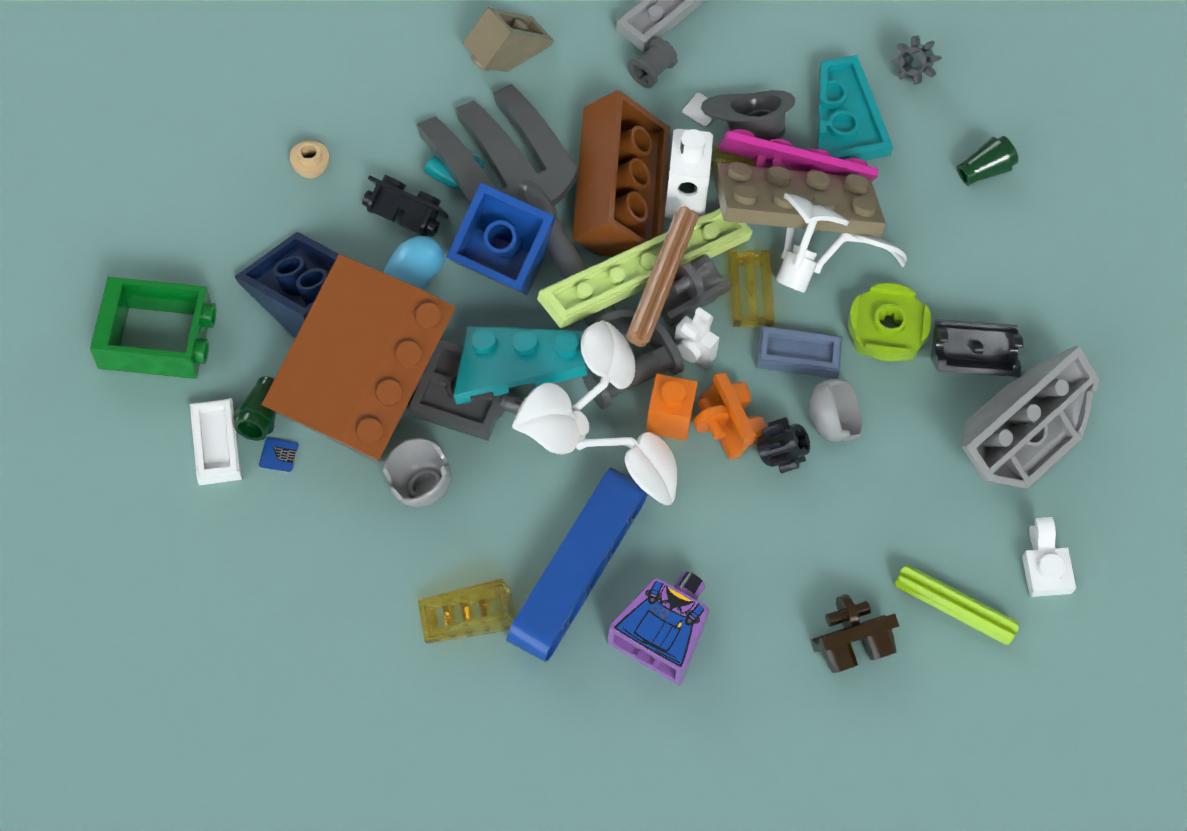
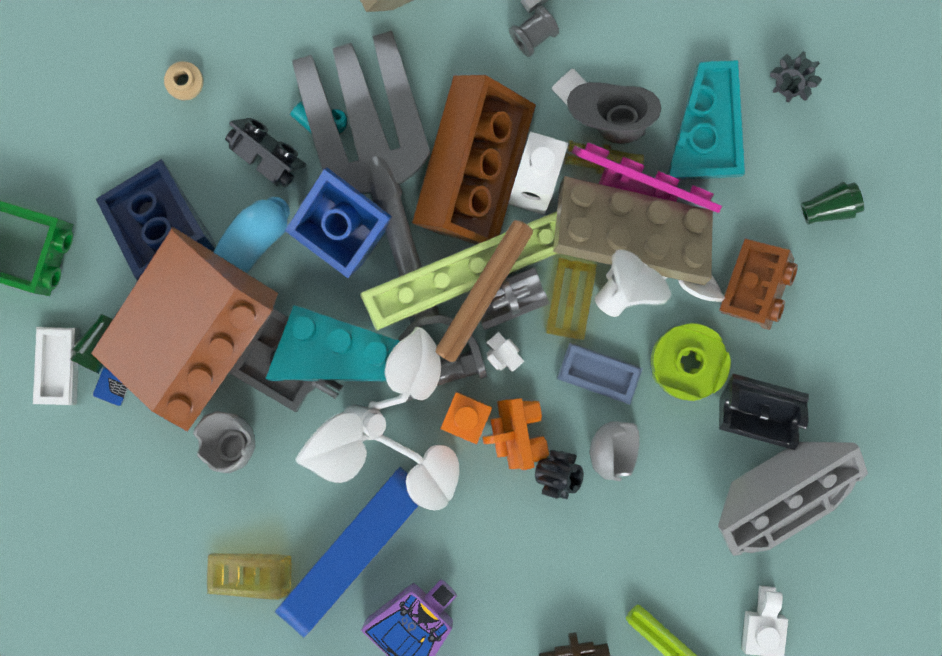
camera: 10 degrees right, 25 degrees up
(937, 239) = (759, 283): none -> dark orange bracket

